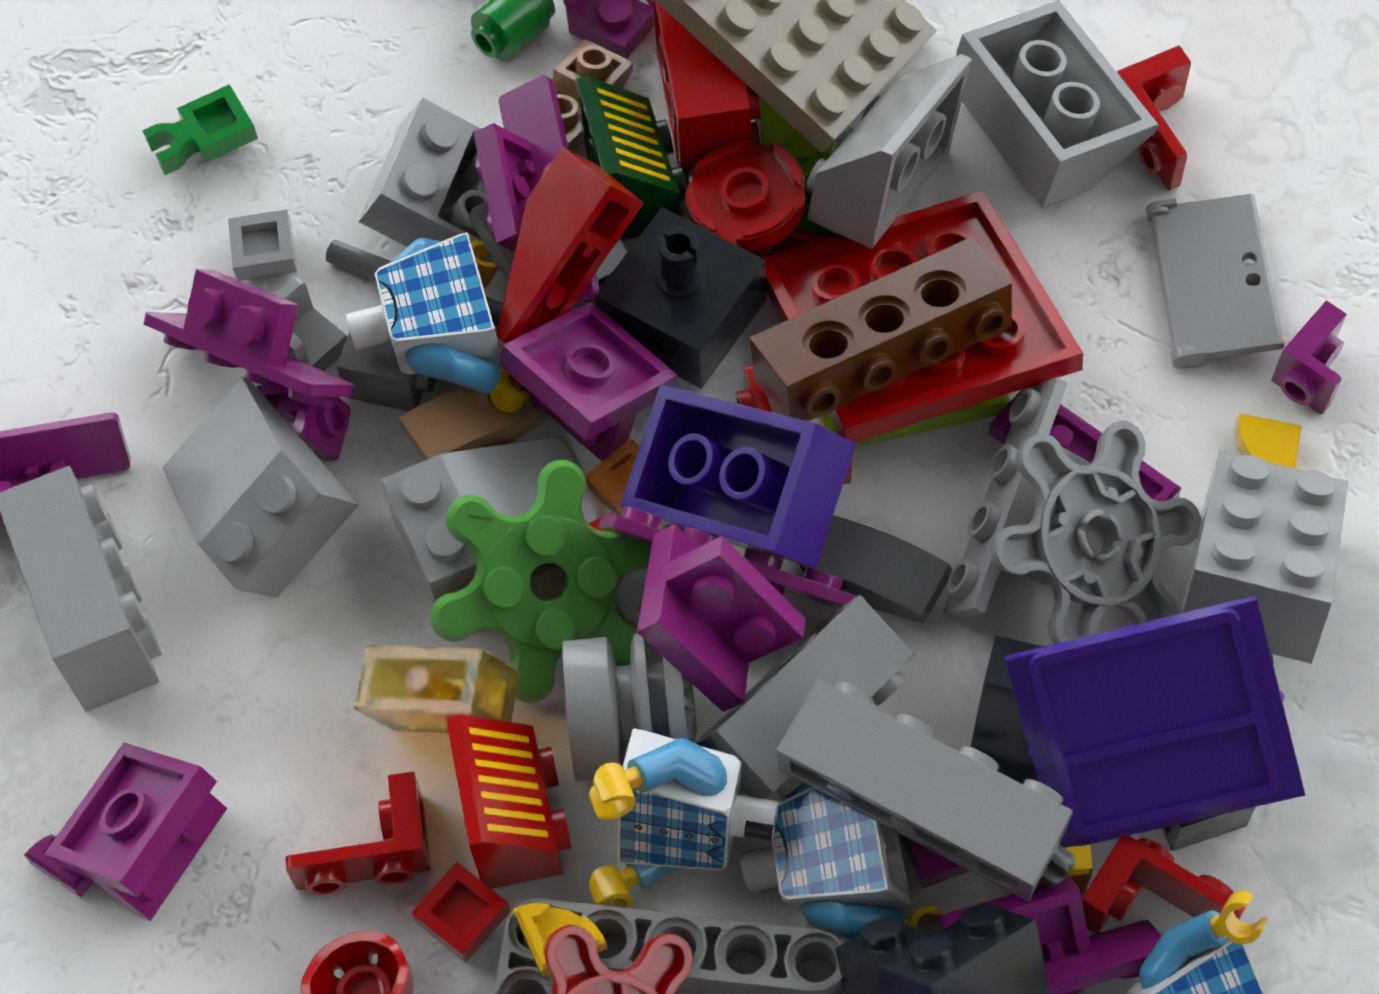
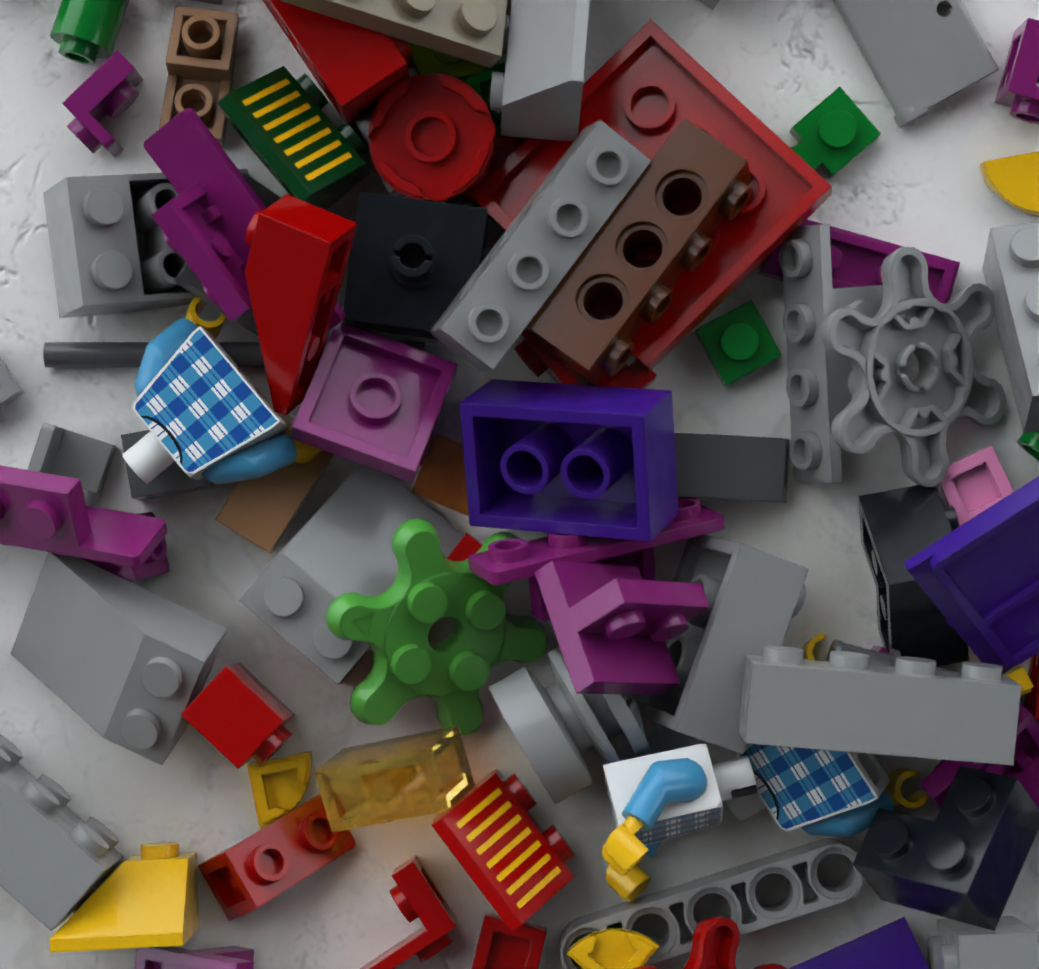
camera: 30 degrees left, 25 degrees up
(139, 703) = (140, 905): none -> yellow slope
(290, 722) = (274, 859): none -> red bracket
(328, 576) = (240, 716): none -> red brick
(328, 676) = (279, 785): none -> yellow tile
(484, 77) = (104, 93): none -> magenta bracket
(716, 321) = (540, 246): none -> light grey brick
(942, 477) = (737, 343): none -> green plate
(1110, 344) = (833, 133): none -> green plate

